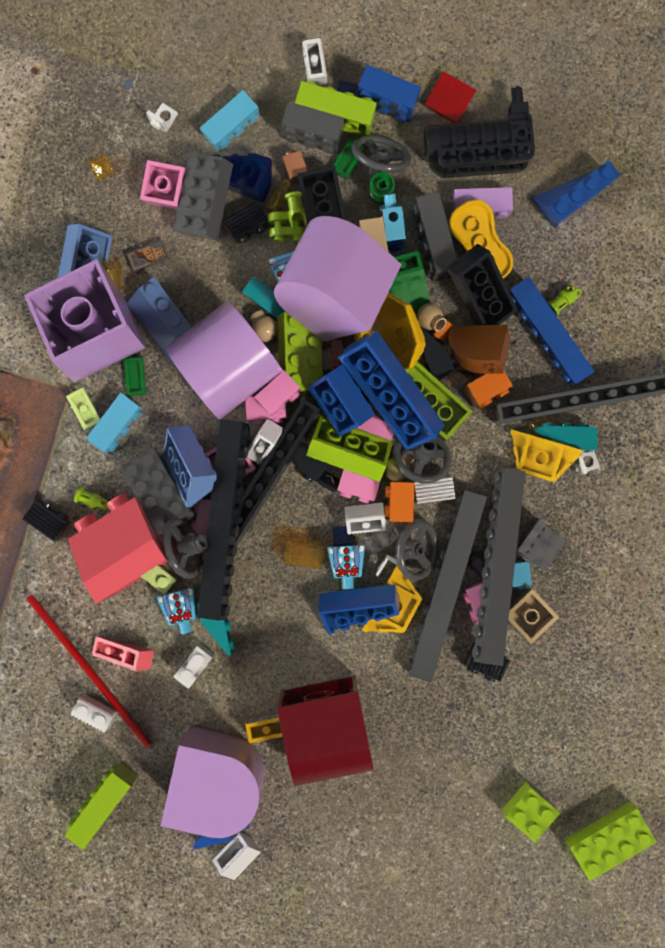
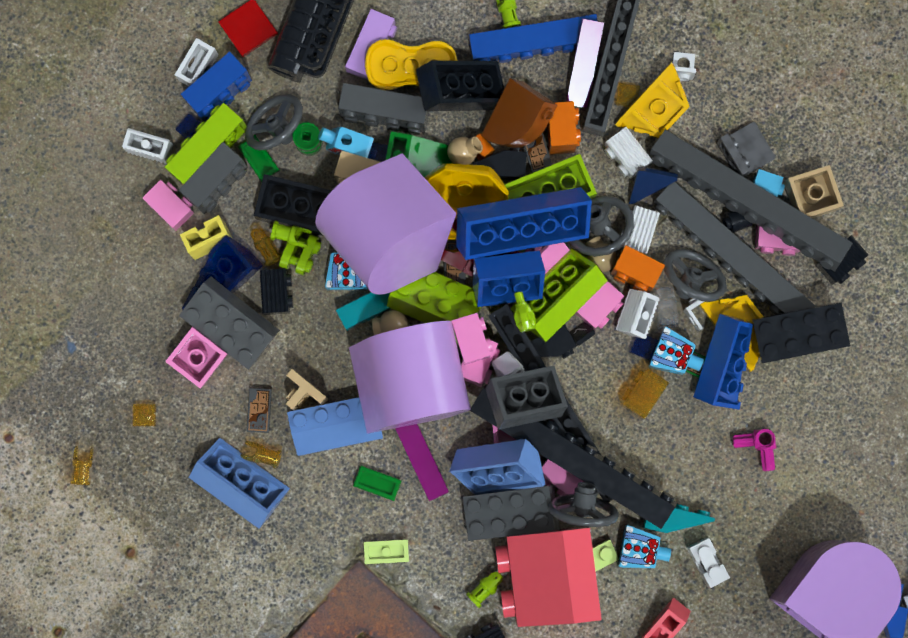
camera: 60 degrees left, 5 degrees down
(34, 139) = (81, 468): none -> clear yellow piece
(84, 321) = (304, 499): lavender brick -> none
(114, 423) = (417, 526): medium azure brick -> none
(158, 122) = (129, 333): white bracket -> none
(167, 405) = (422, 461): none -> magenta tile
(178, 282) = (297, 397): none -> tan bracket
(230, 121) = (163, 259): medium azure brick -> none
(249, 459) = (526, 397): none -> dark grey brick
(256, 142) = (202, 241): none -> light yellow brick
(263, 728) = (807, 516): yellow brick -> none
(275, 103) = (169, 205): none -> bright pink brick
(294, 164) = (240, 216): nougat brick -> none
(305, 670) = (766, 451): none -> dark pink axle
(317, 426) = (524, 315): none -> lime piece
(324, 731) = (838, 453): dark red brick -> none
(409, 72) = (204, 56): none -> white brick
(410, 656) = (801, 332): none -> black brick
(476, 478) = (650, 181): none -> dark blue tile
(492, 450) = (627, 153): none -> white brick
(550, 380) = (584, 62): none -> tile
(576, 436) = (655, 60): teal slope -> none

